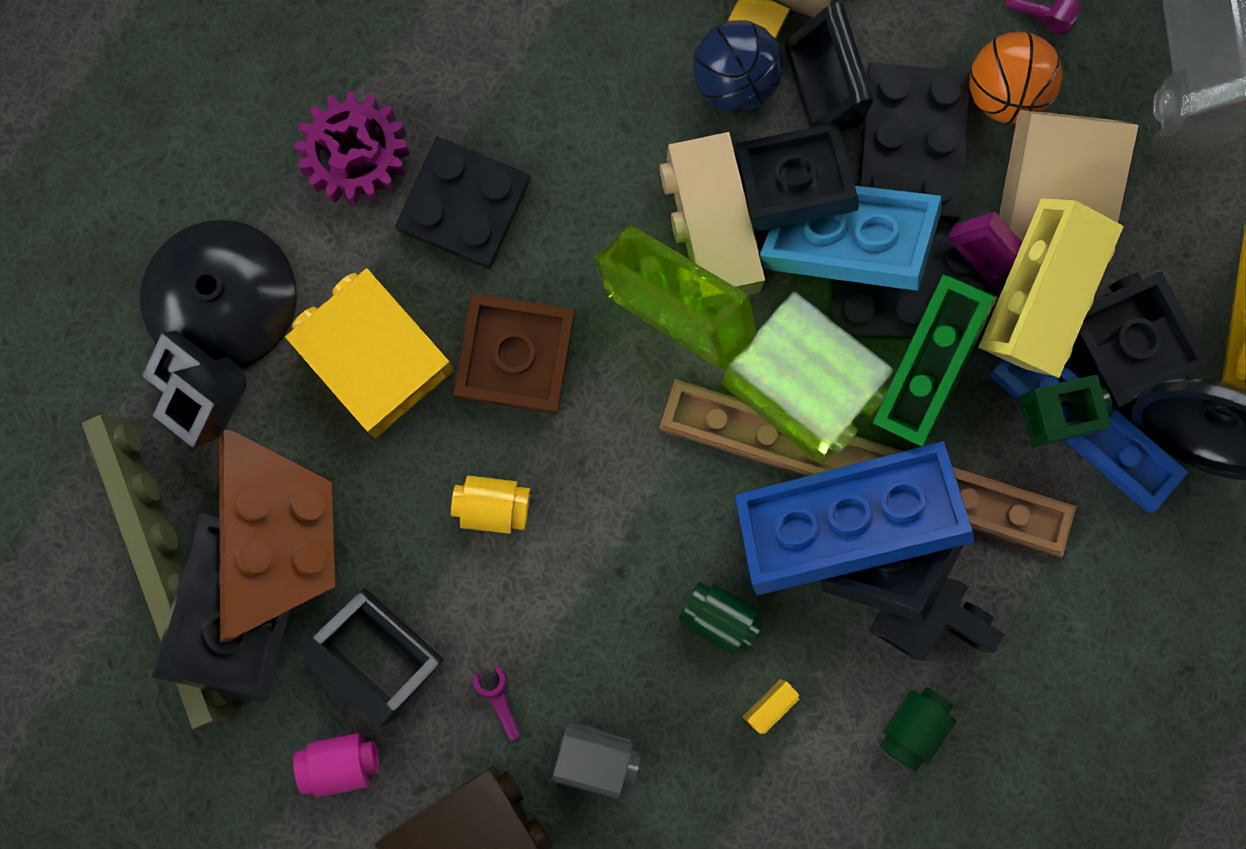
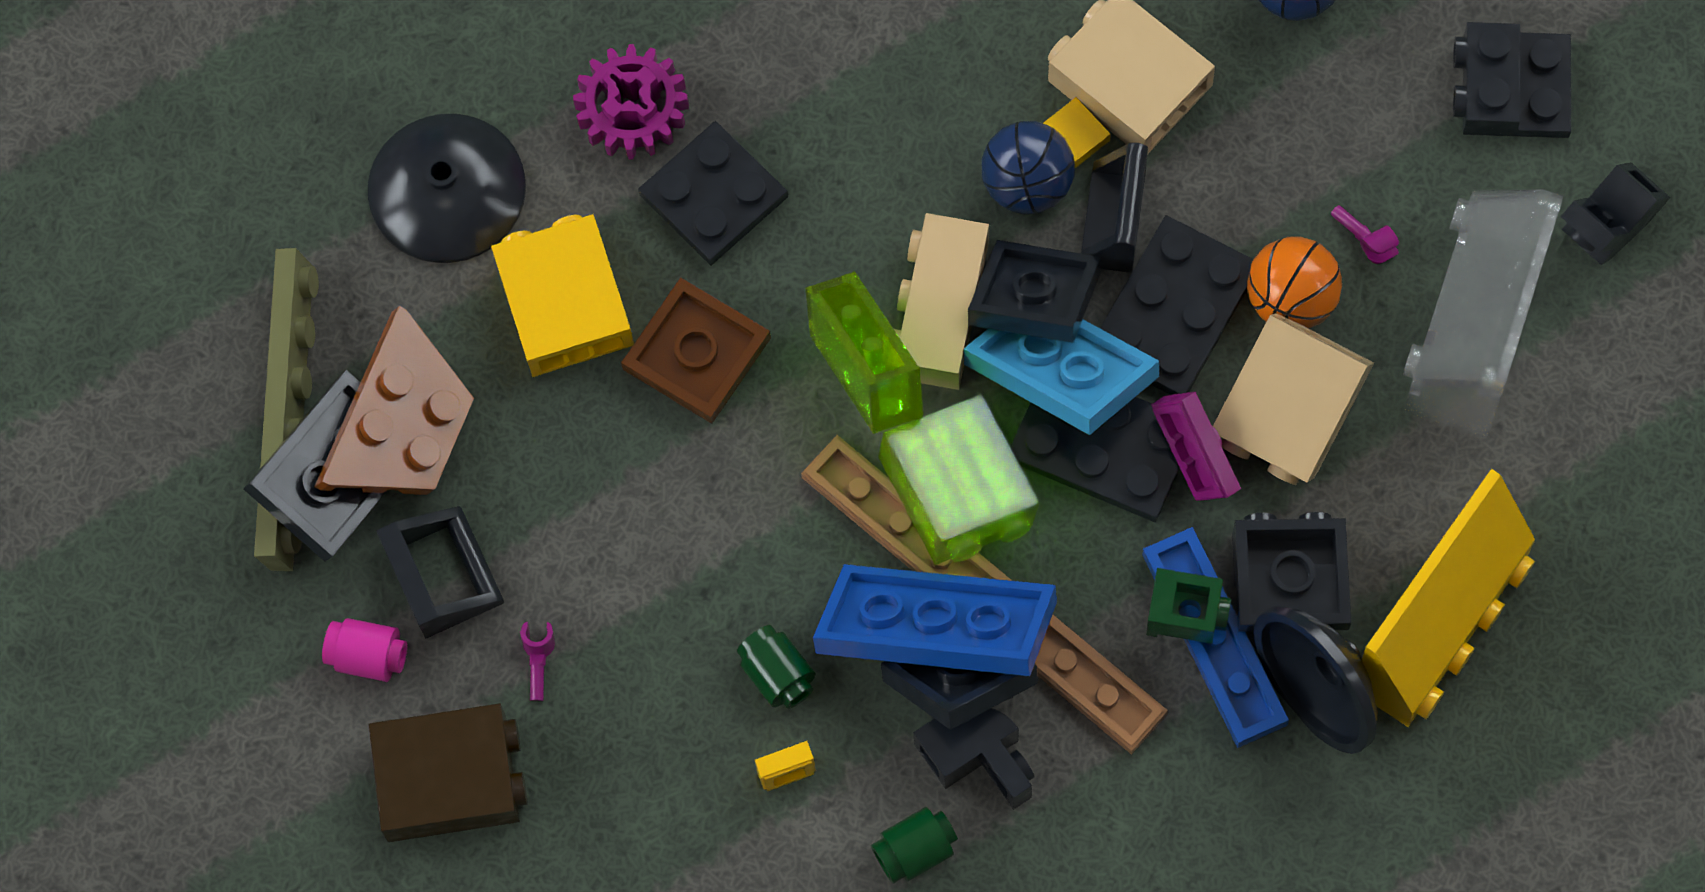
camera: 35 degrees right, 10 degrees down
(196, 389) = (389, 259): black brick -> none
(491, 504) = (611, 477): yellow brick -> none
(596, 761) = (598, 734): dark grey brick -> none
(935, 360) = (1083, 508): green brick -> none
(1051, 286) = (1218, 484): light yellow brick -> none

